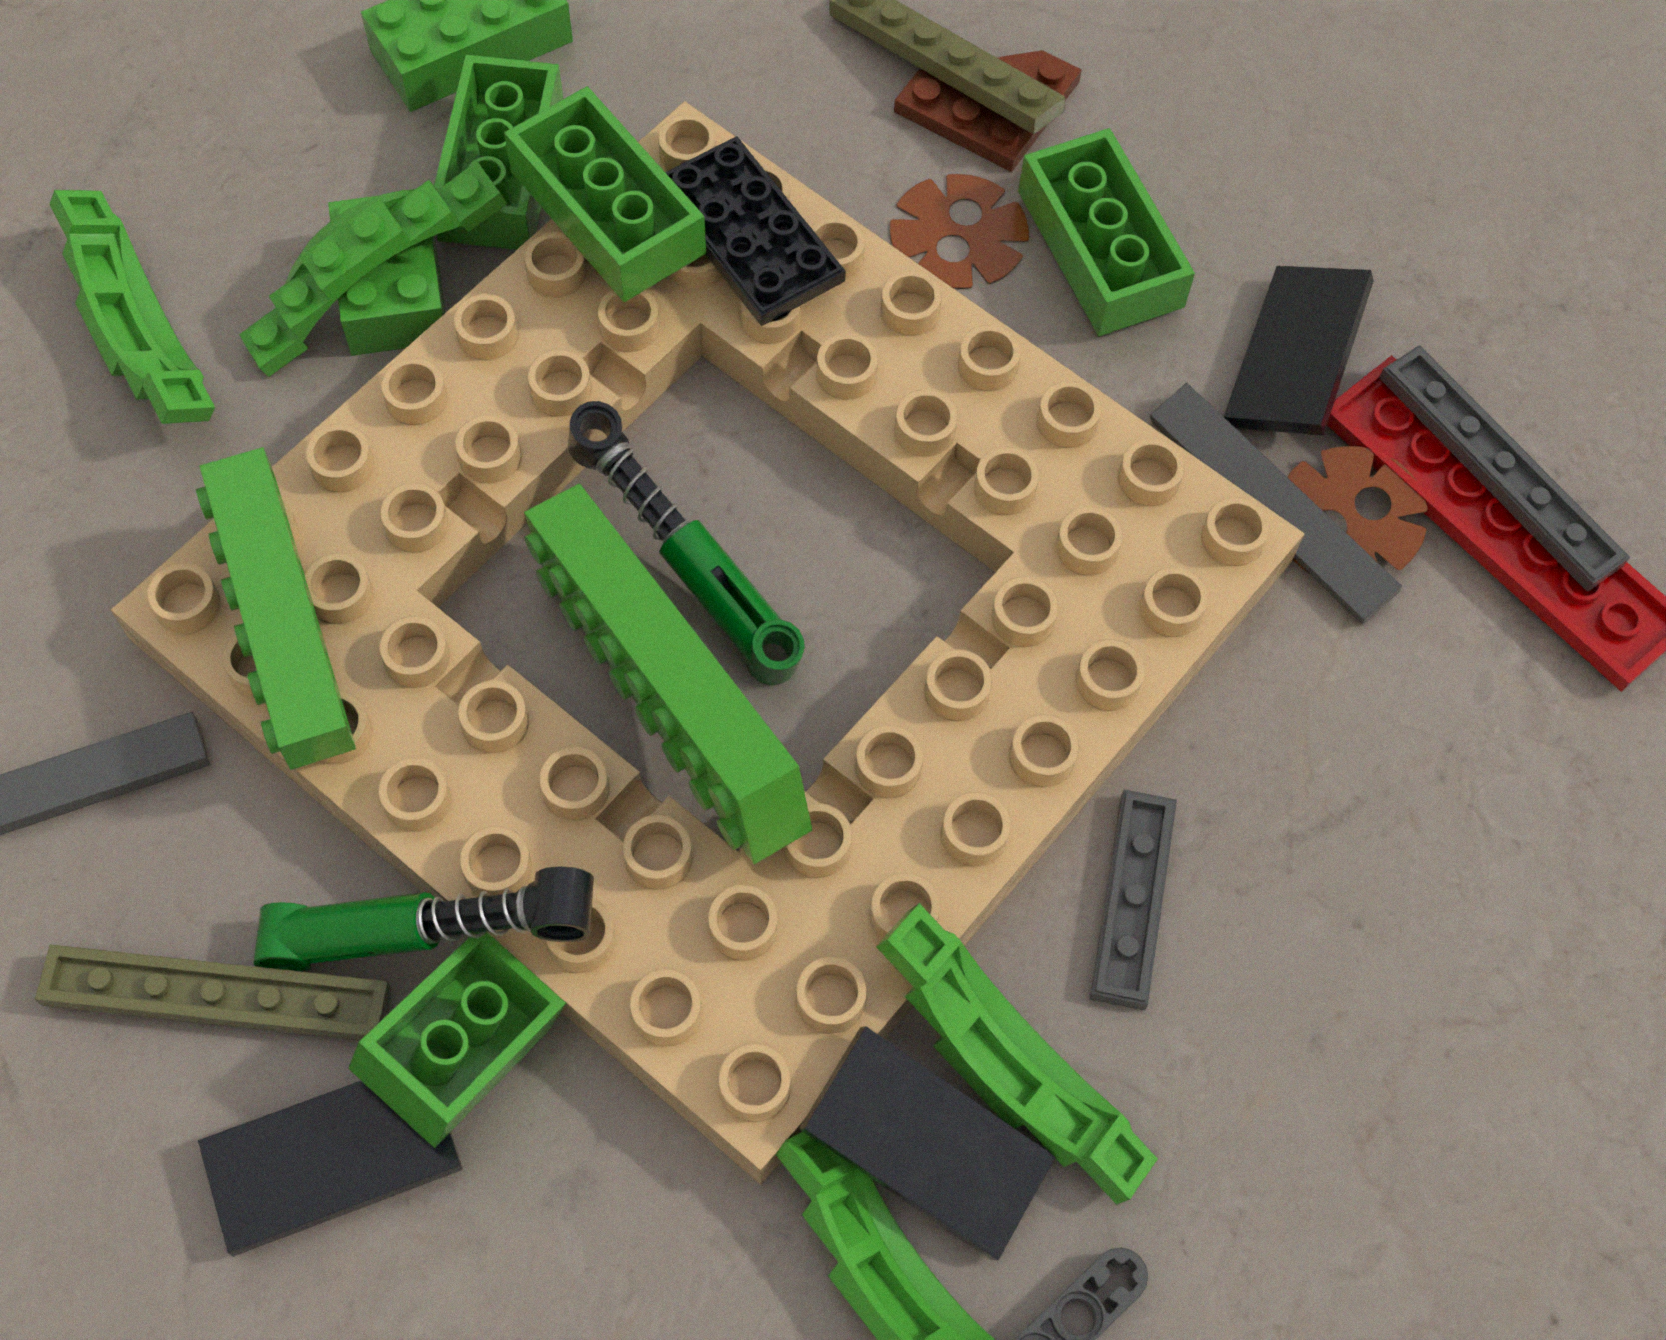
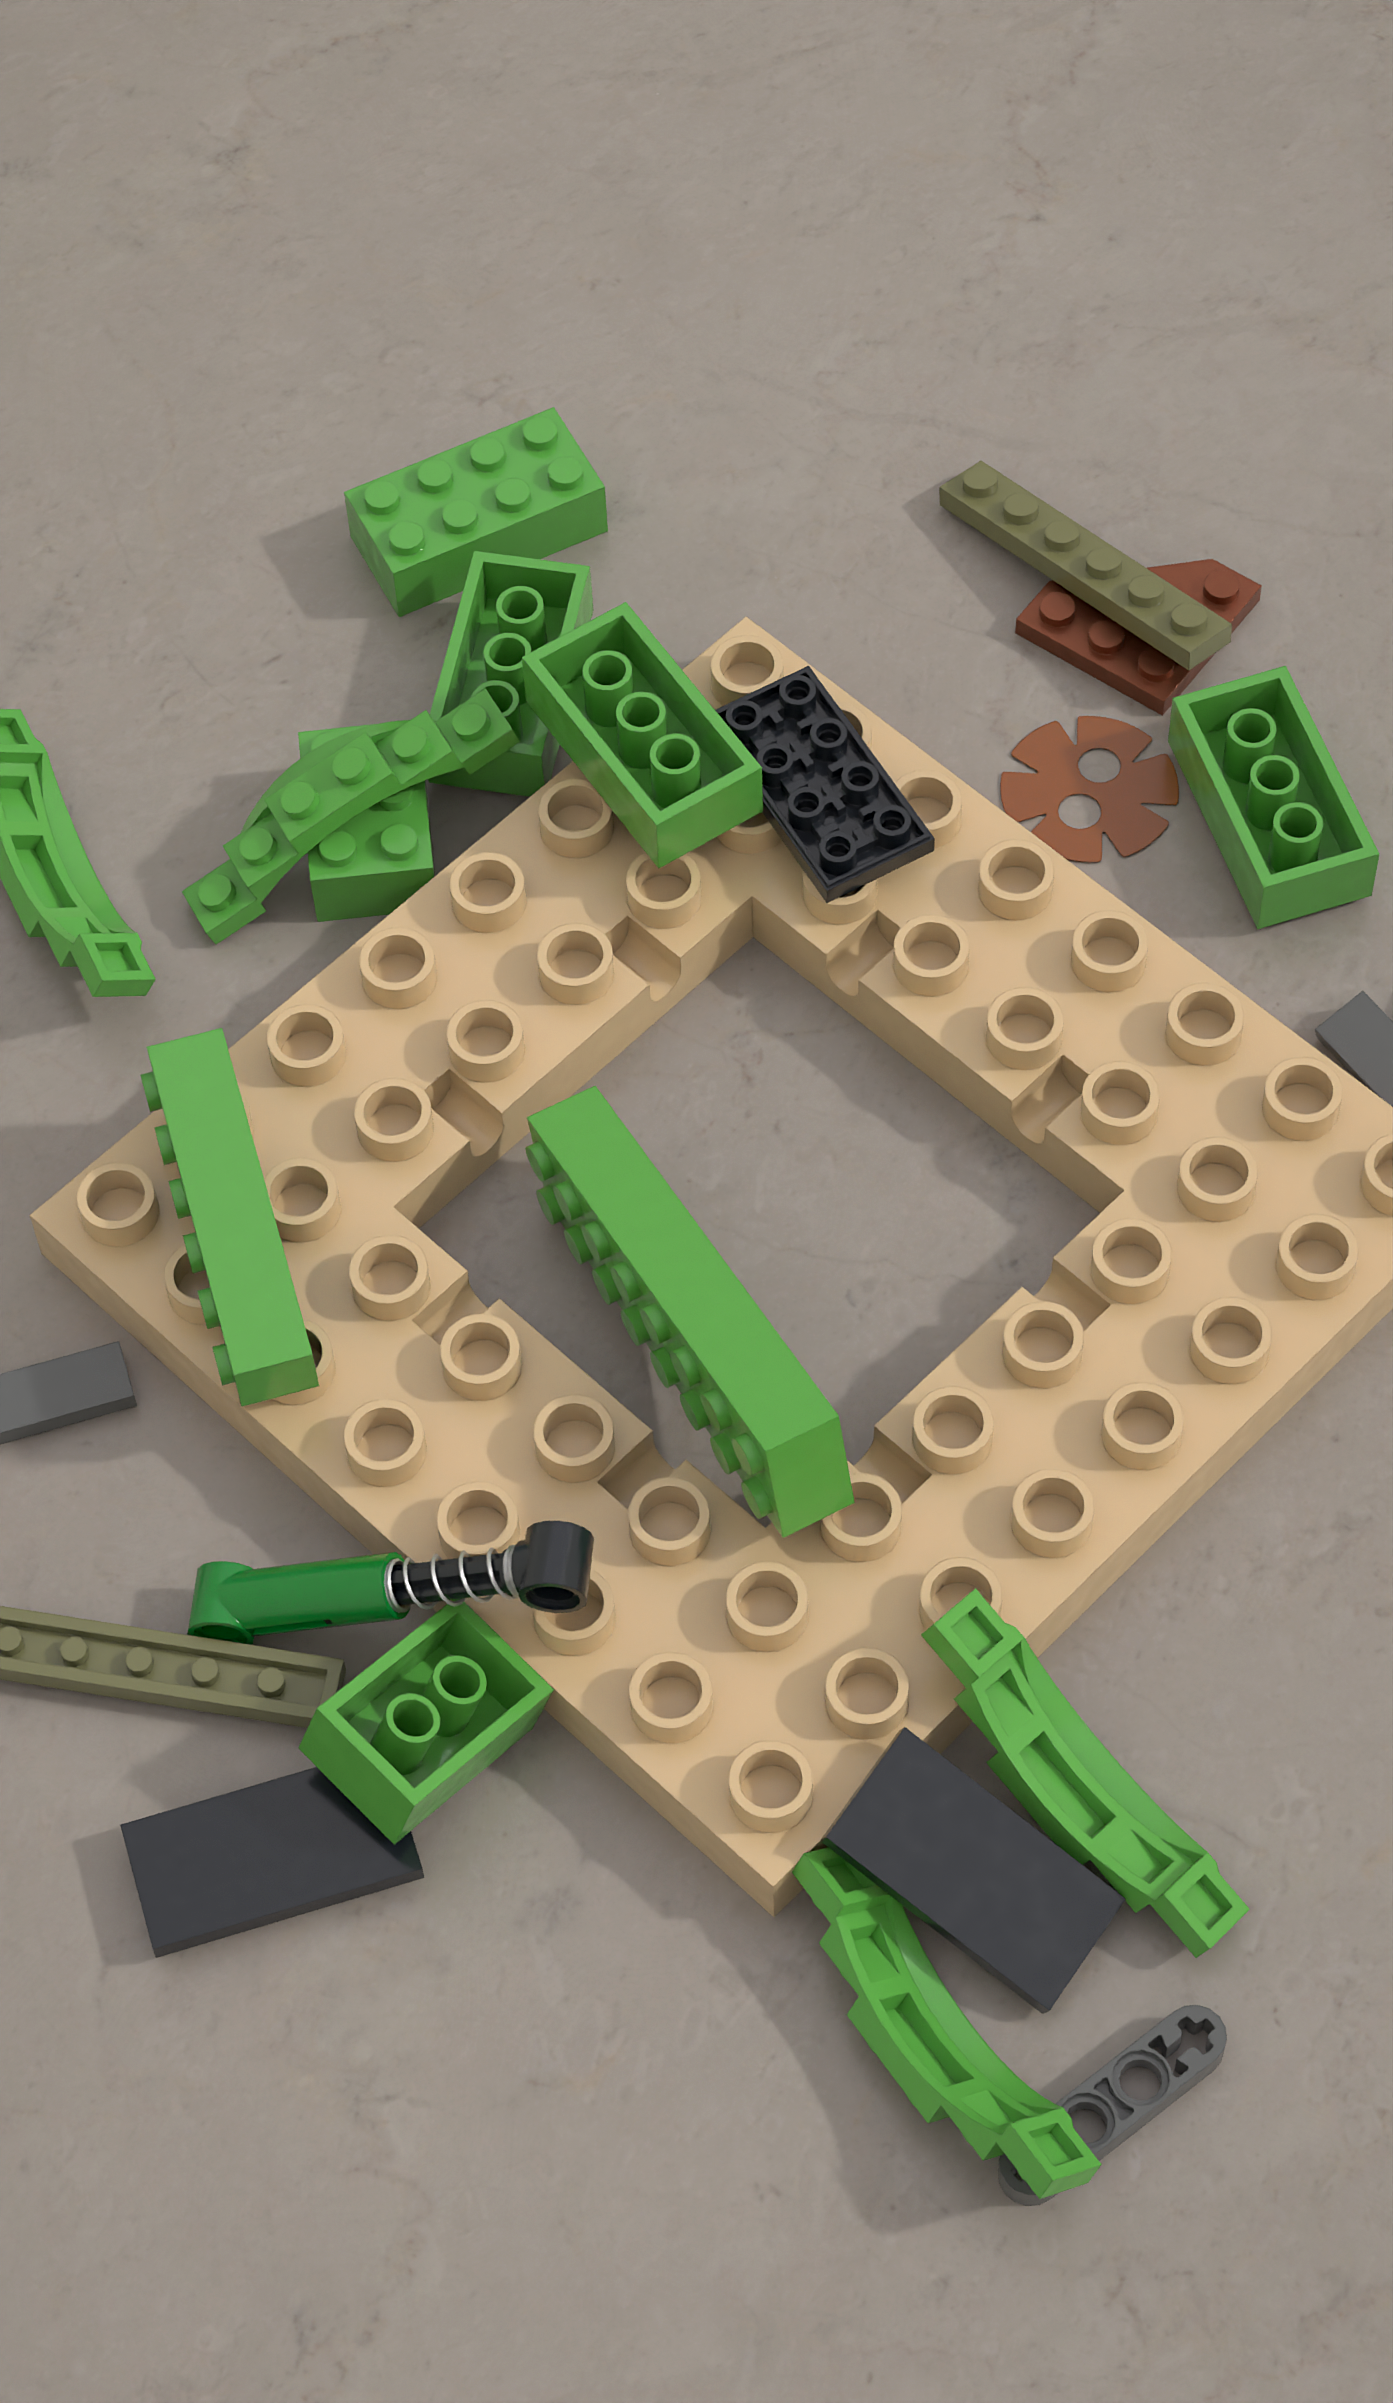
camera: 10 degrees right, 5 degrees down
(688, 548) = (725, 1171): piece -> none
(1133, 900) = (1246, 1614): dark grey tile -> none

